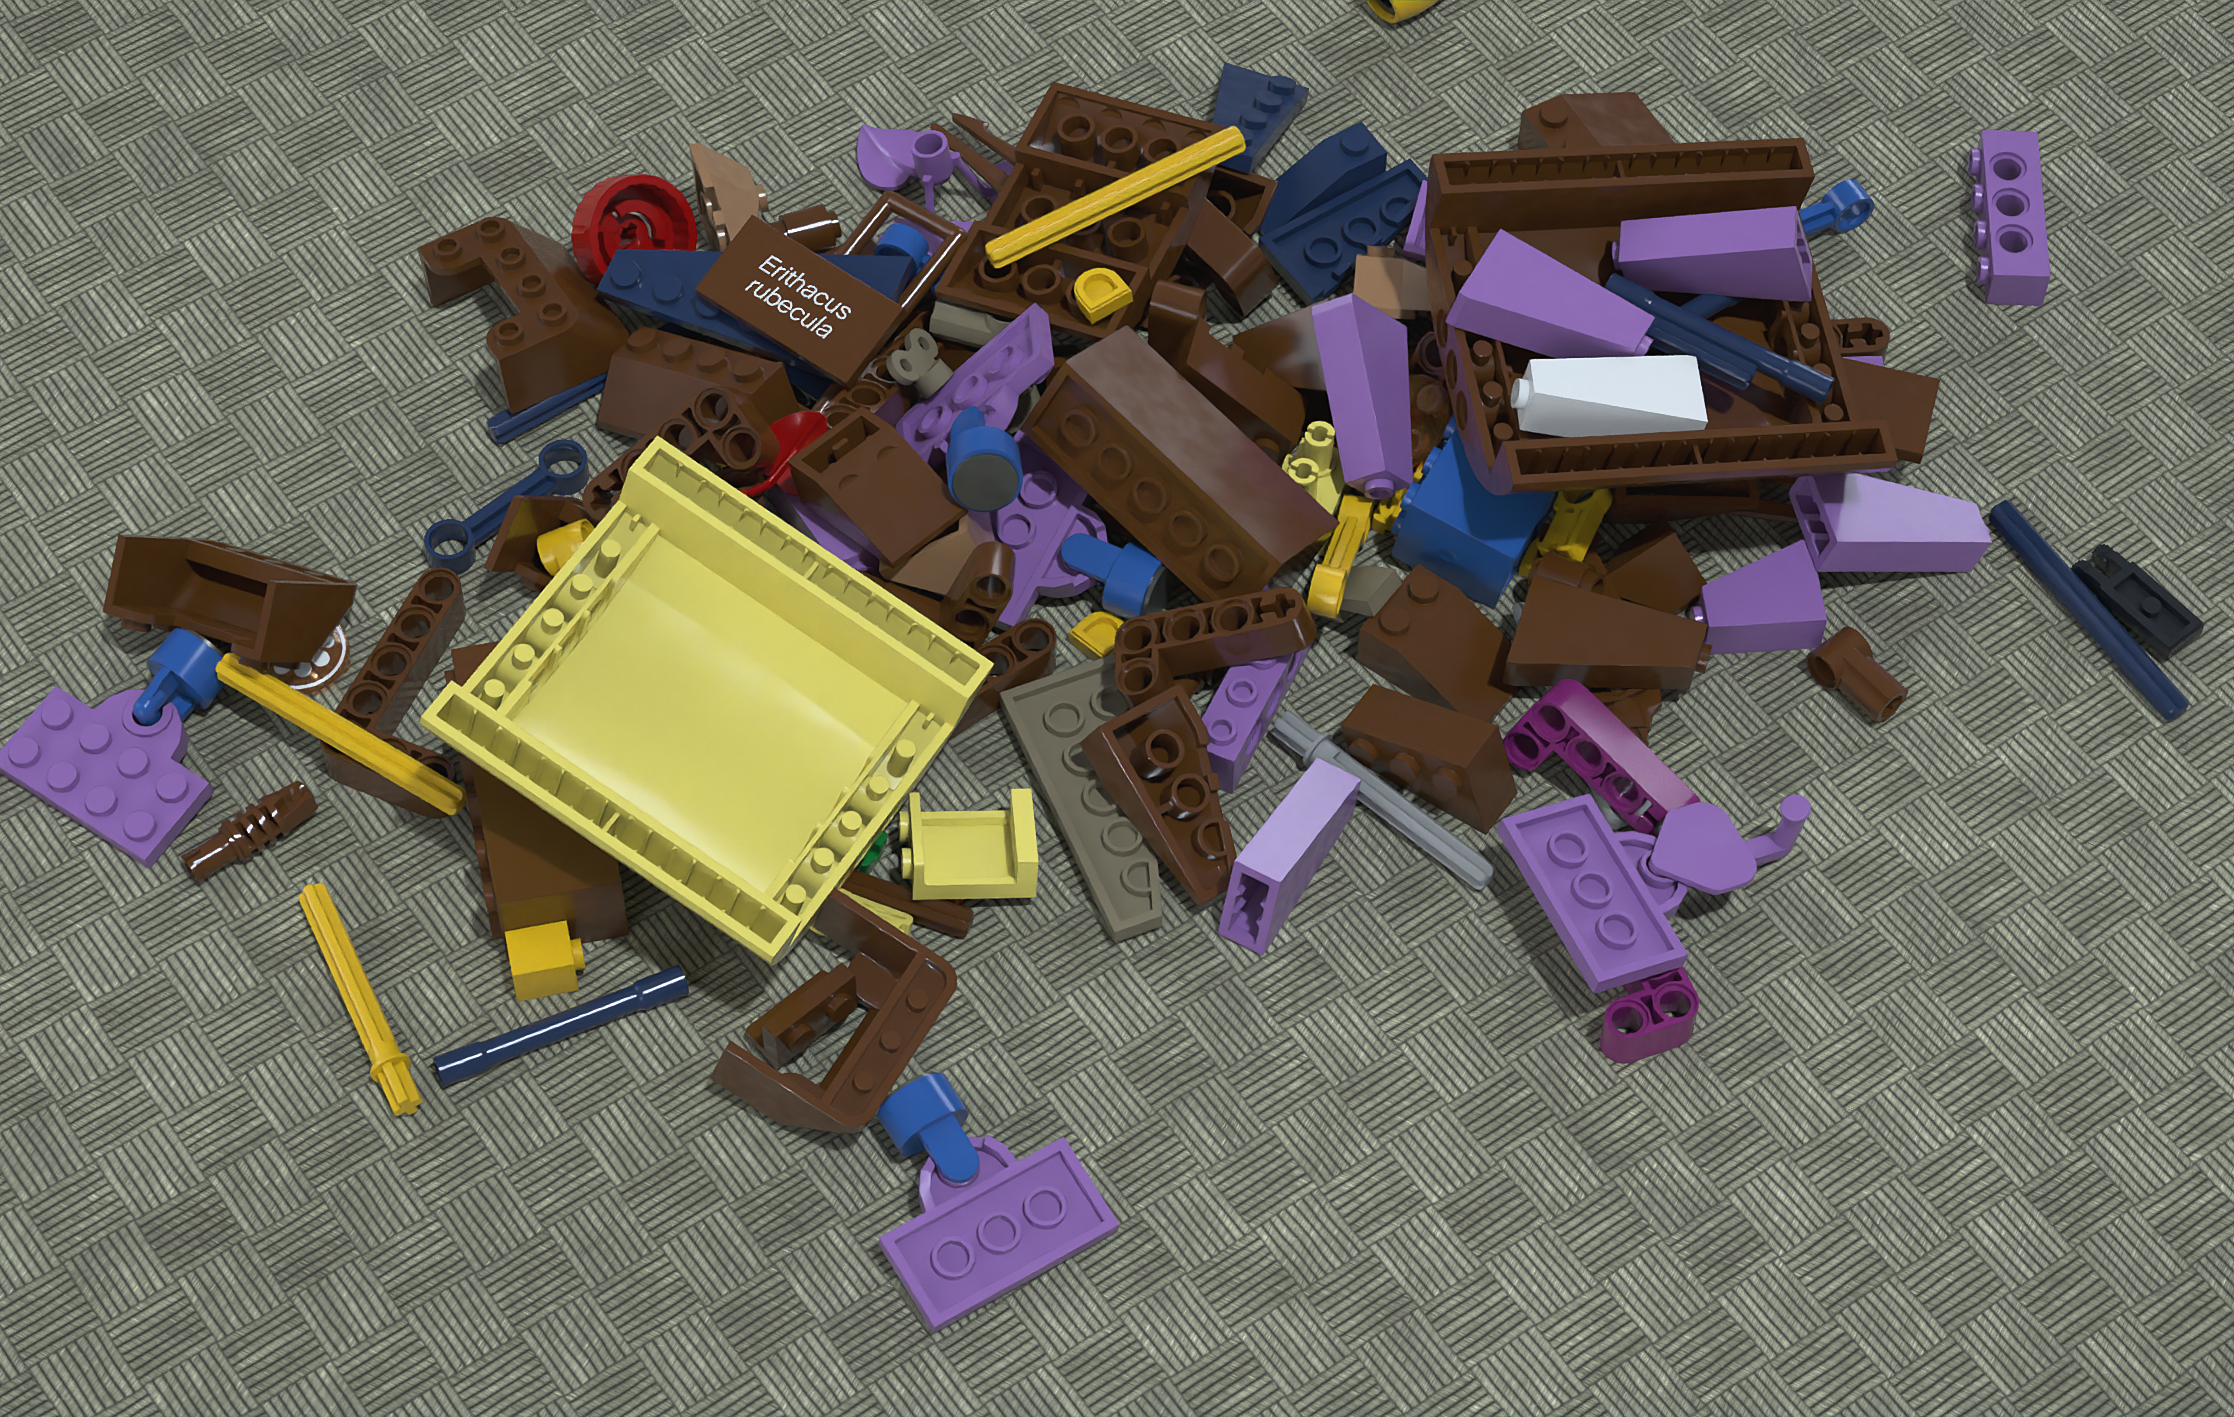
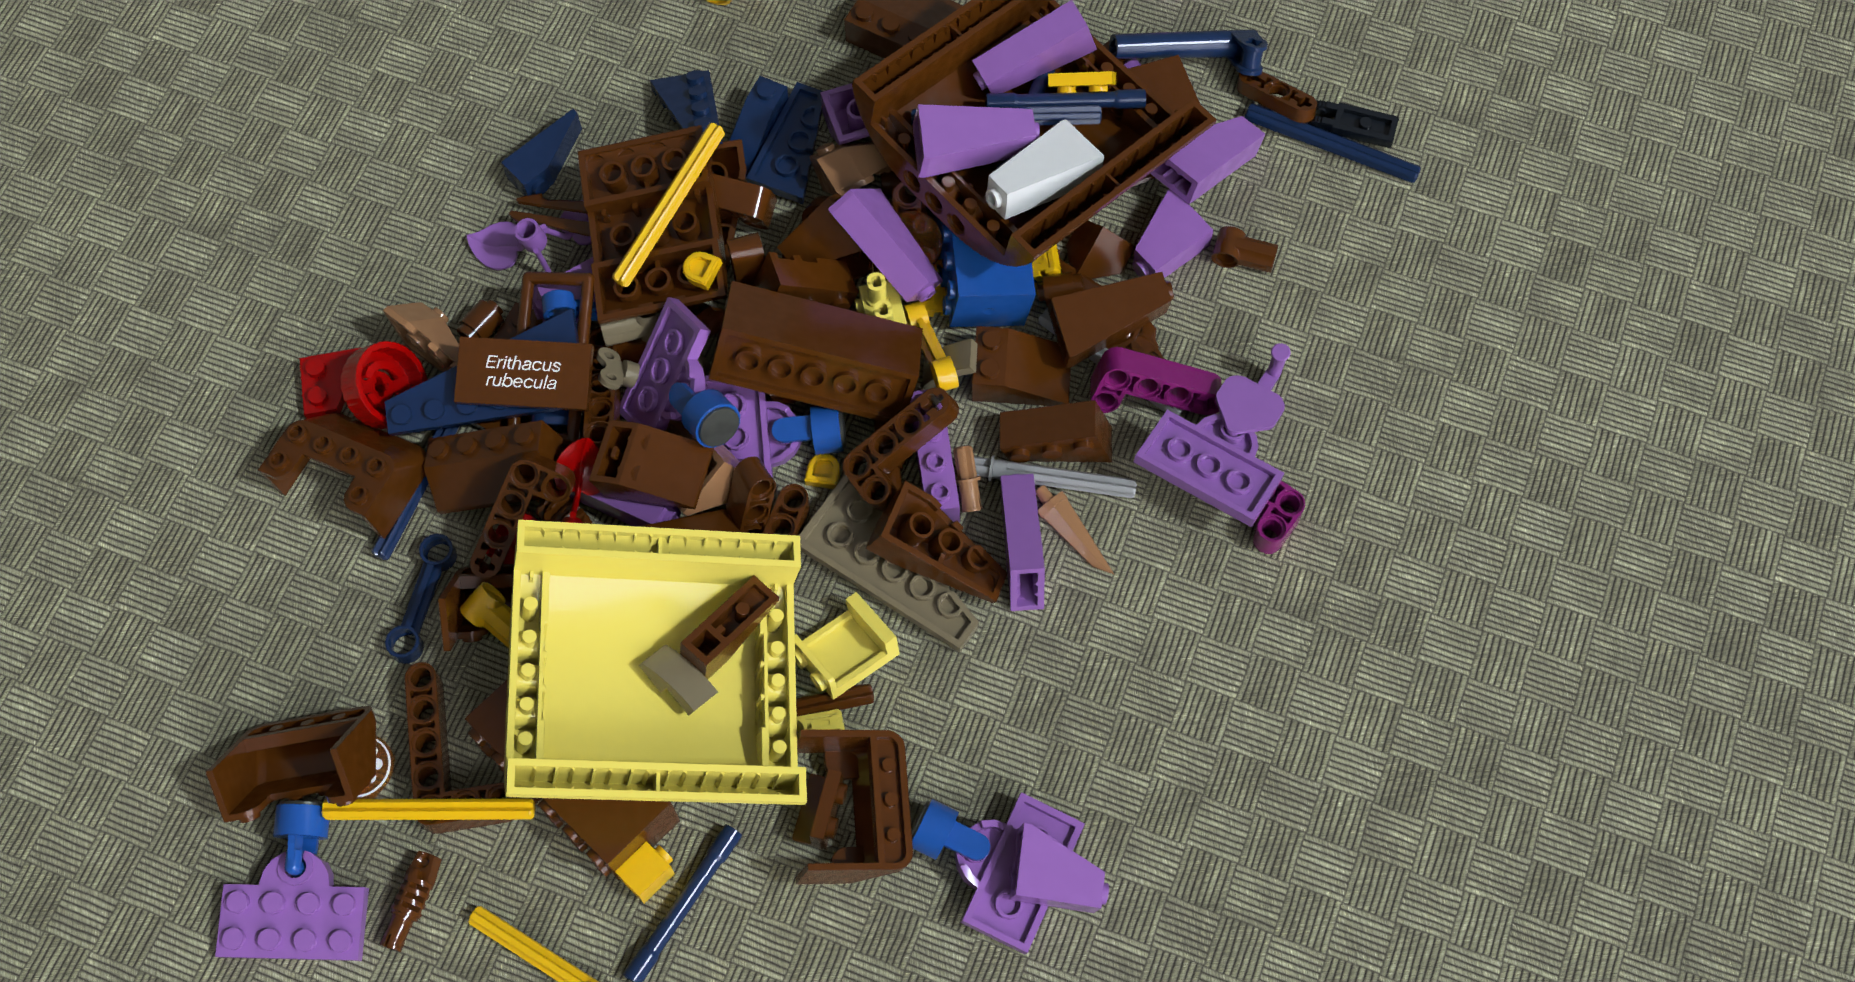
camera: 30 degrees left, 10 degrees up
(559, 199) = (323, 382): none -> red wing
(732, 746) = (682, 679): none -> dark tan slope
(829, 724) = (728, 627): none -> reddish brown slope
(1013, 83) = (540, 160): none -> dark blue slope
(1030, 1251) = (1054, 874): none -> medium lavender slope
(1273, 740) = (967, 479): none -> medium nougat axle
(1368, 866) = (1065, 521): none -> medium nougat bar
(1768, 330) = (1069, 81): none -> yellow wing
(2042, 418) = (1240, 47): none -> dark blue axle
(2064, 531) = (1293, 103): none -> reddish brown beam

